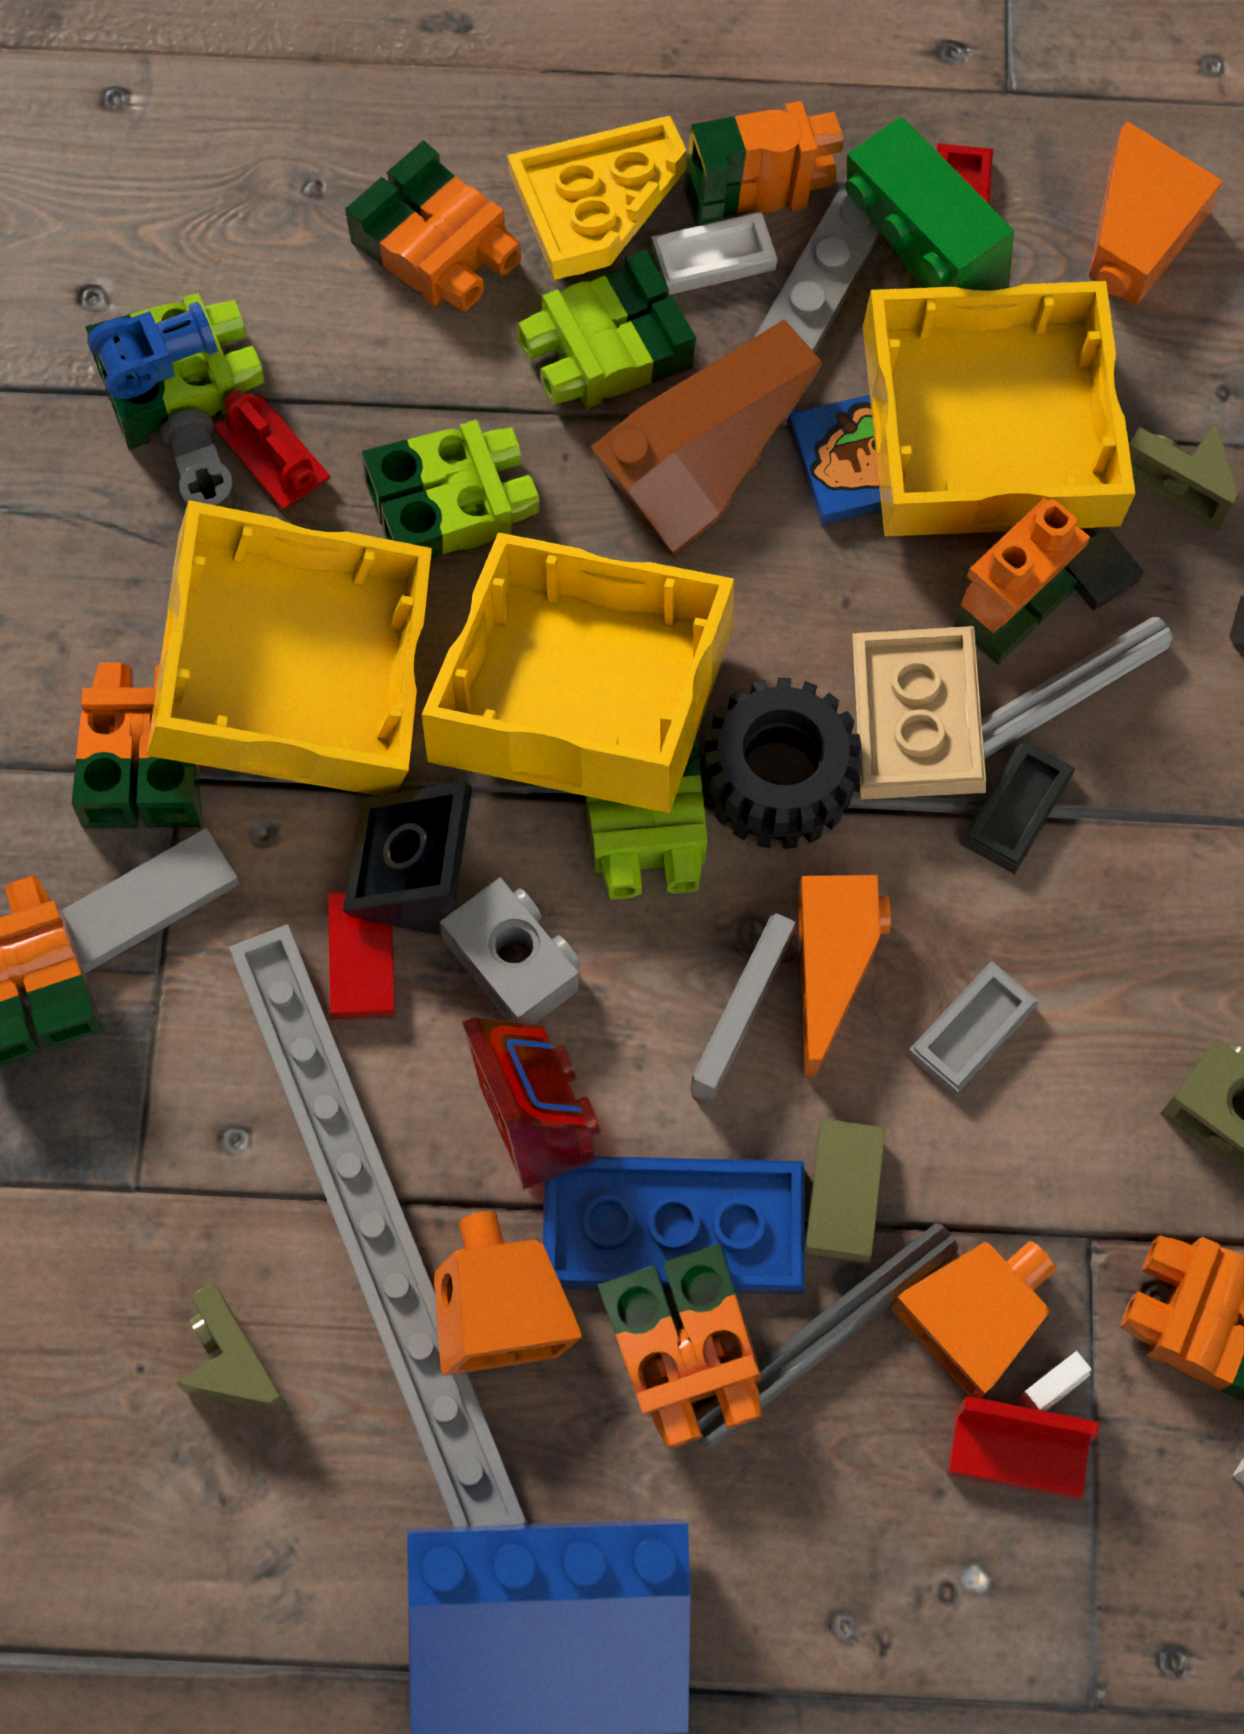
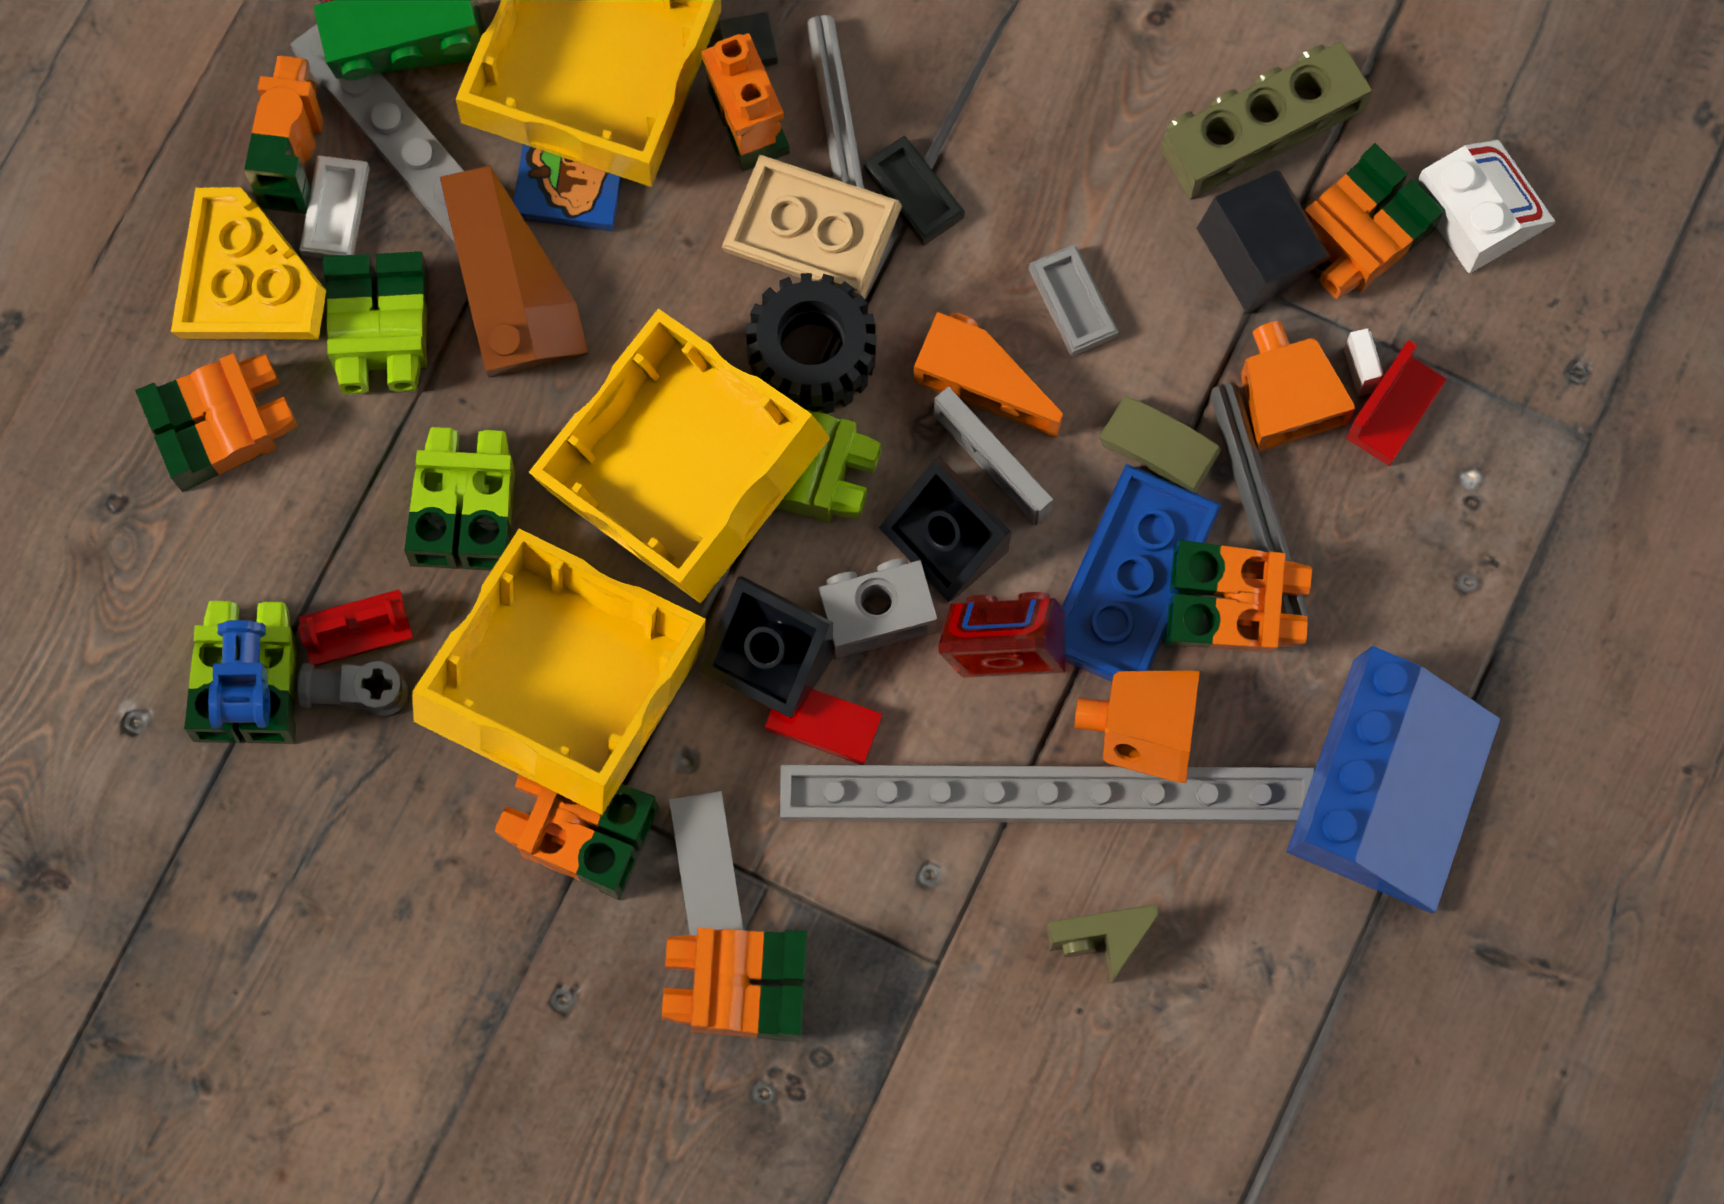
camera: 65 degrees left, 5 degrees up
(632, 994) = (947, 530): none -> black slope
(1145, 1204) = (1261, 239): none -> black slope

